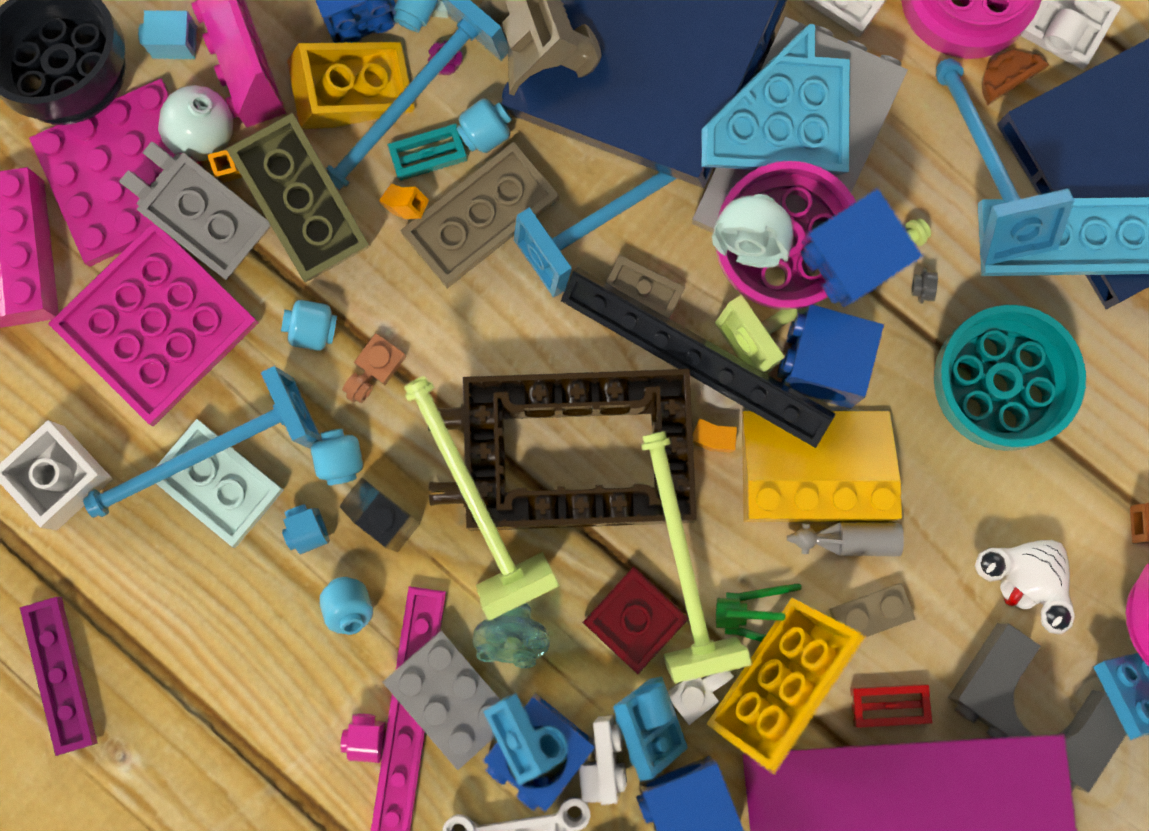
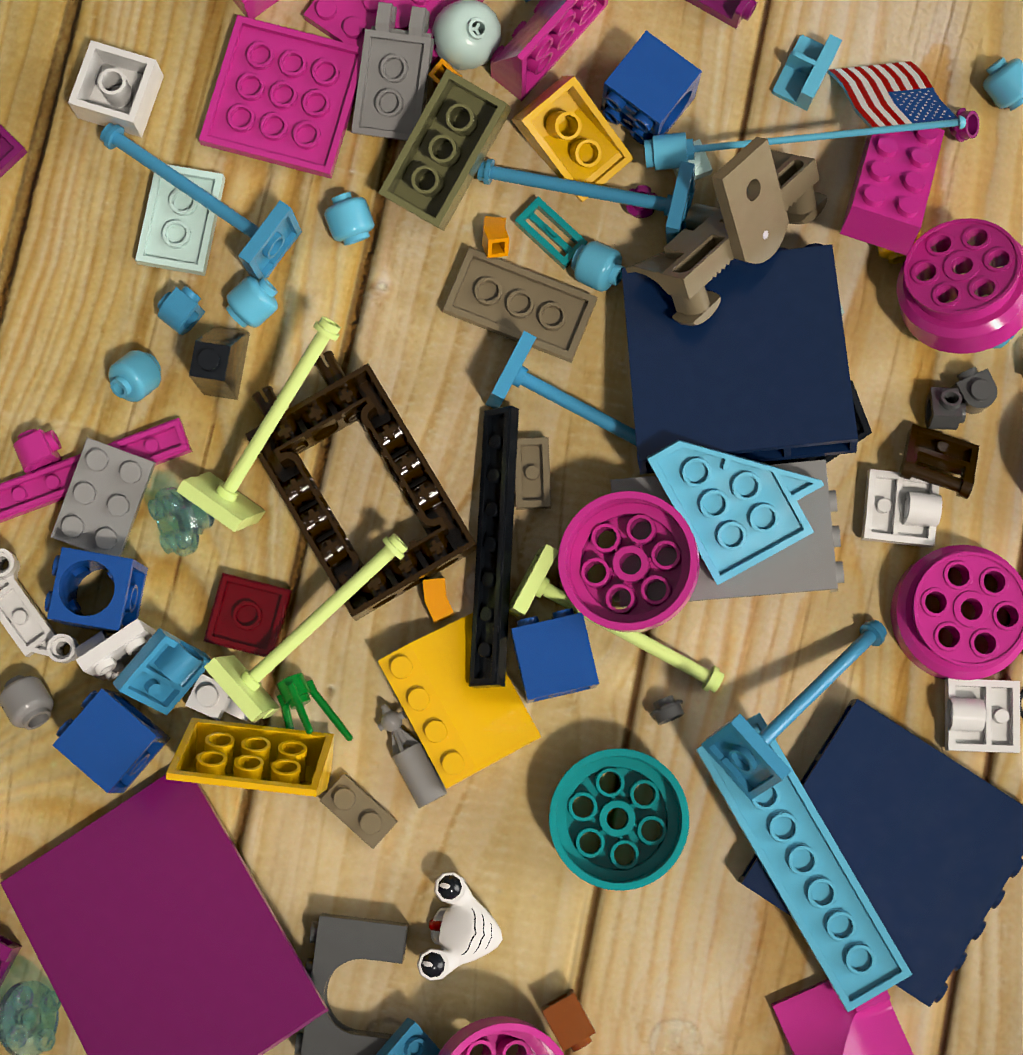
camera: 60 degrees right, 0 degrees up
(378, 360) = (351, 292): nougat plate -> none
(525, 750) = (88, 567): dark azure plate -> none
(755, 231) = (610, 526): light aqua cylinder -> none
(858, 707) = (277, 874): red tile -> none
(859, 249) = (635, 619): blue brick -> none
(1008, 72) = (906, 687): dark orange tile -> none

